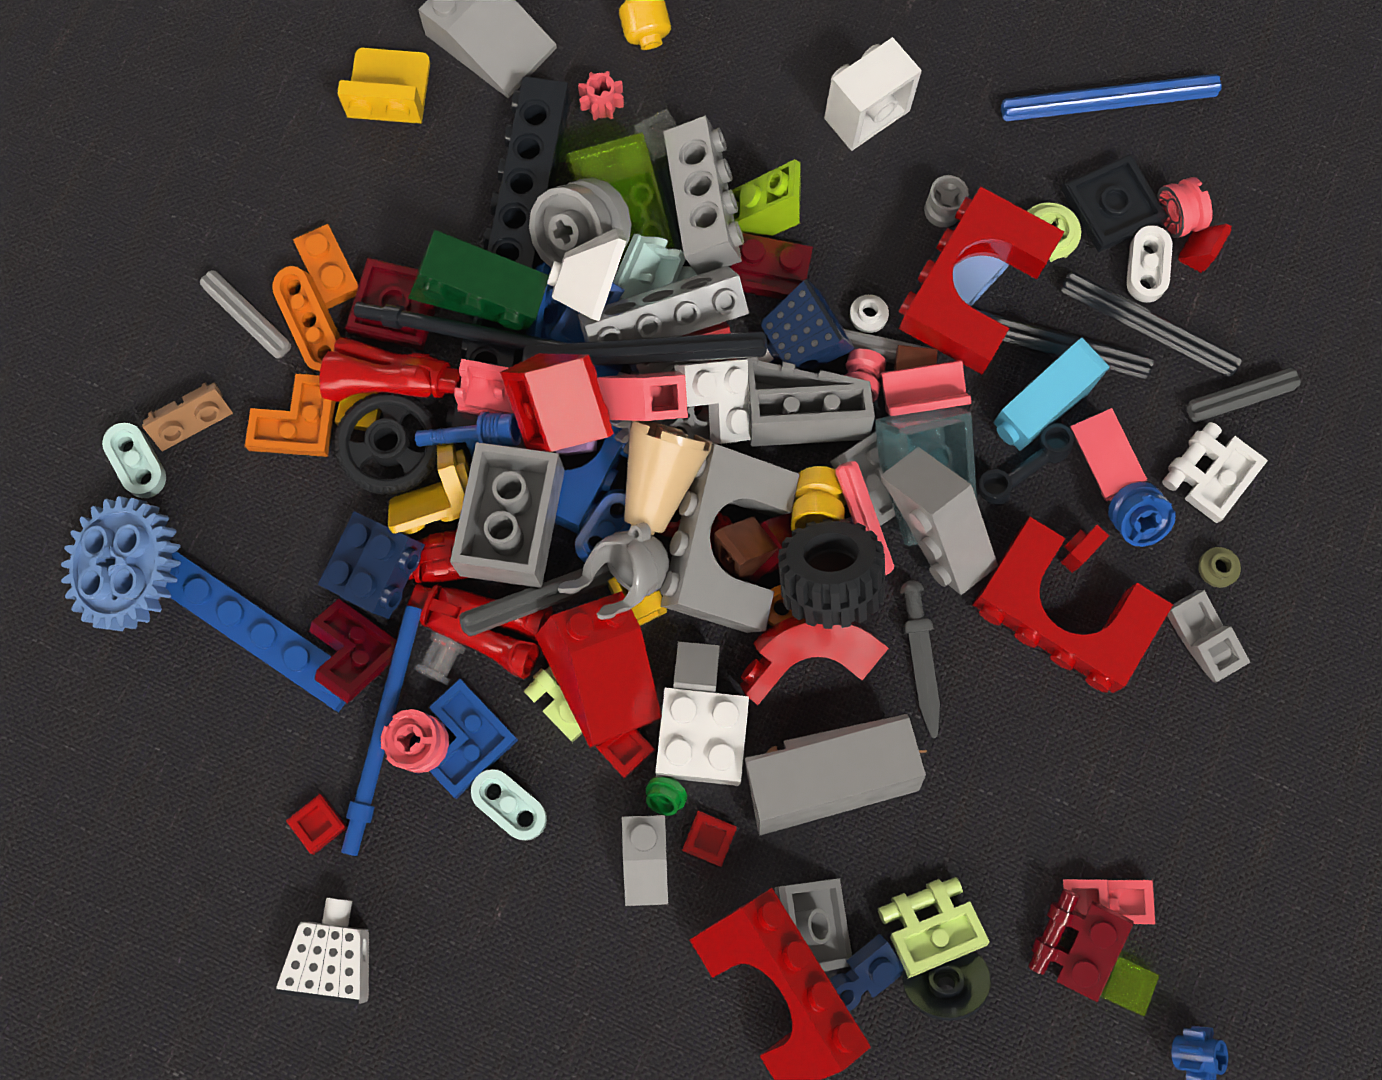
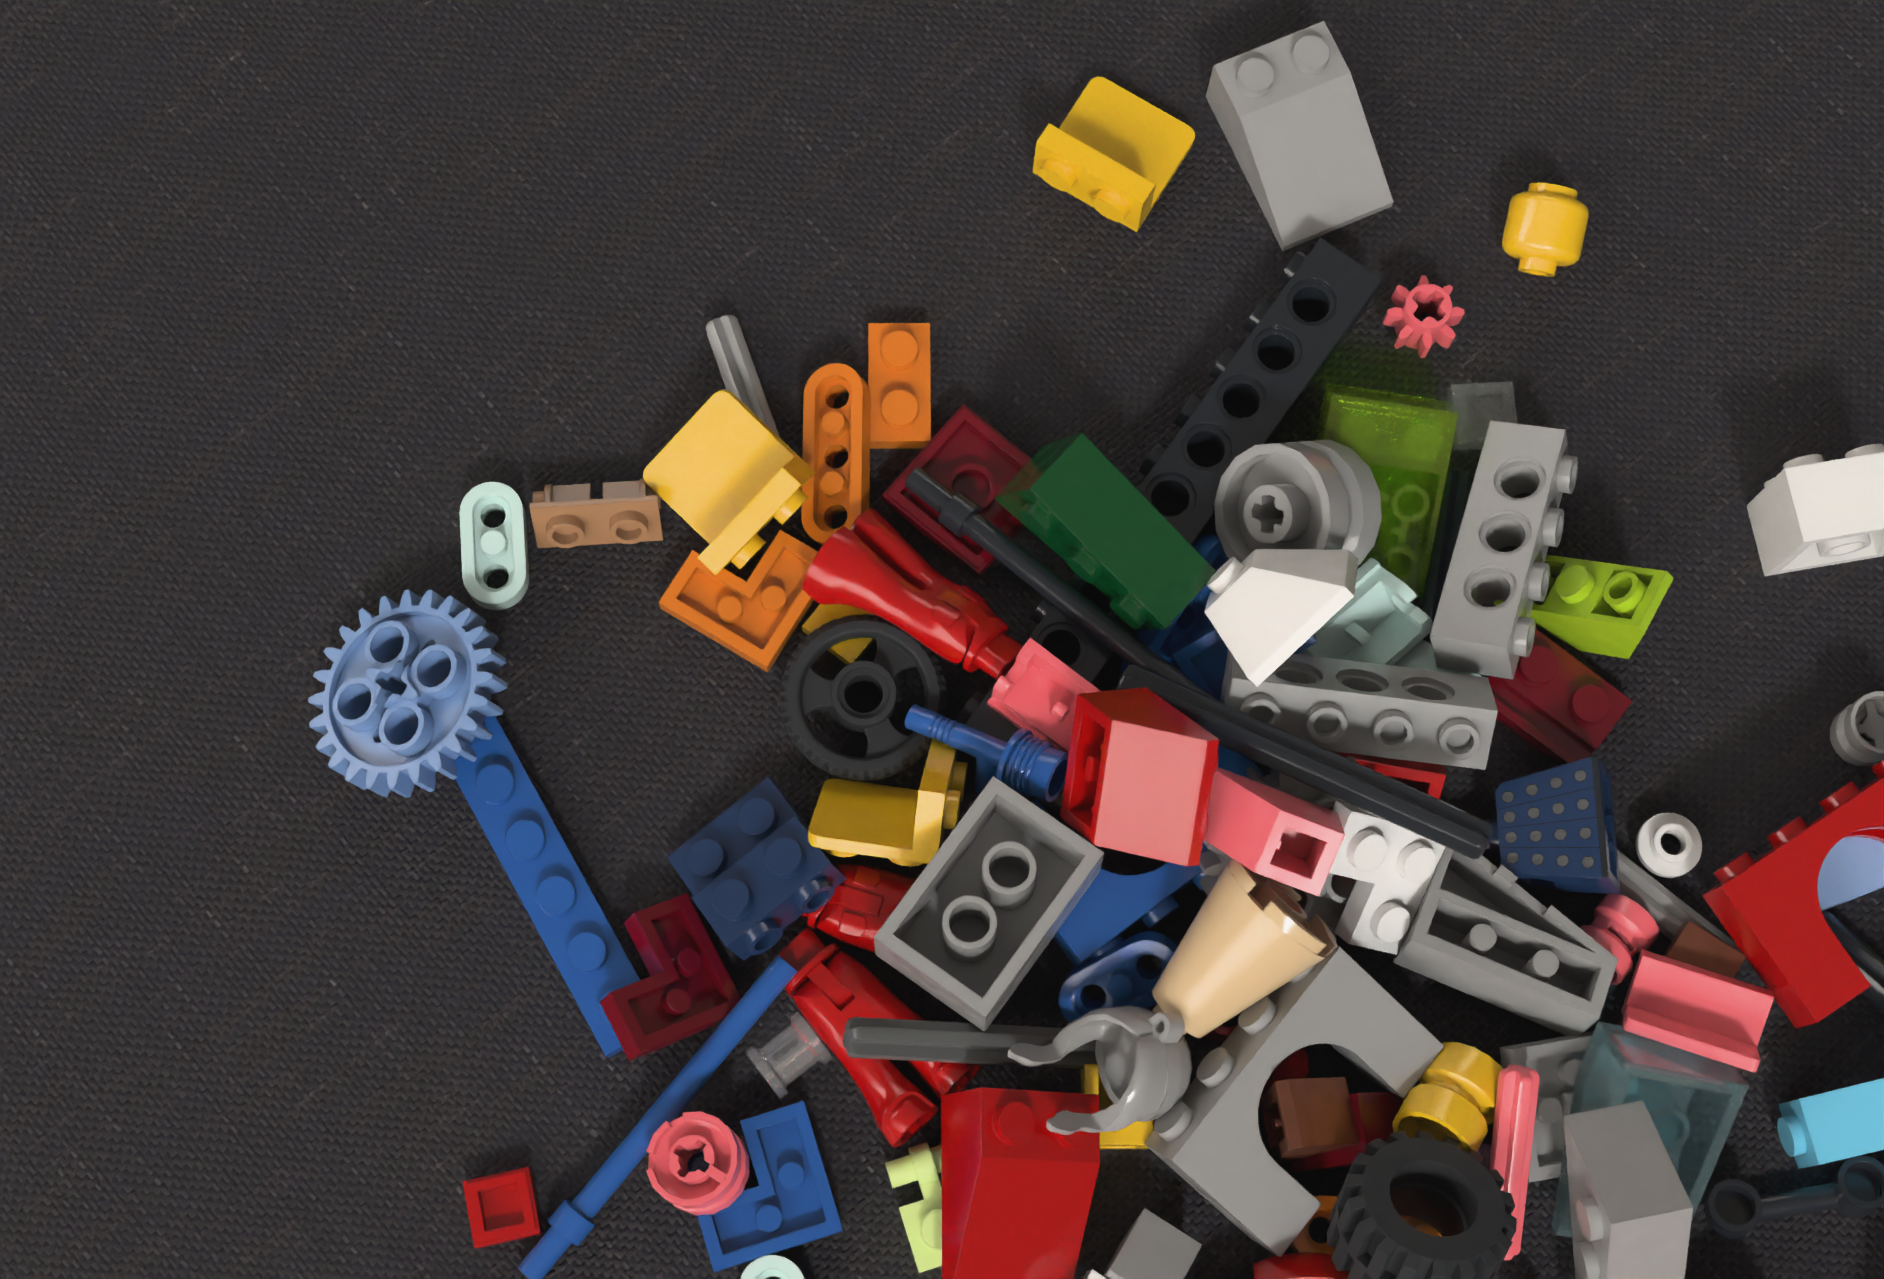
camera: 25 degrees right, 0 degrees up
(251, 358) = (728, 479): none -> yellow bracket

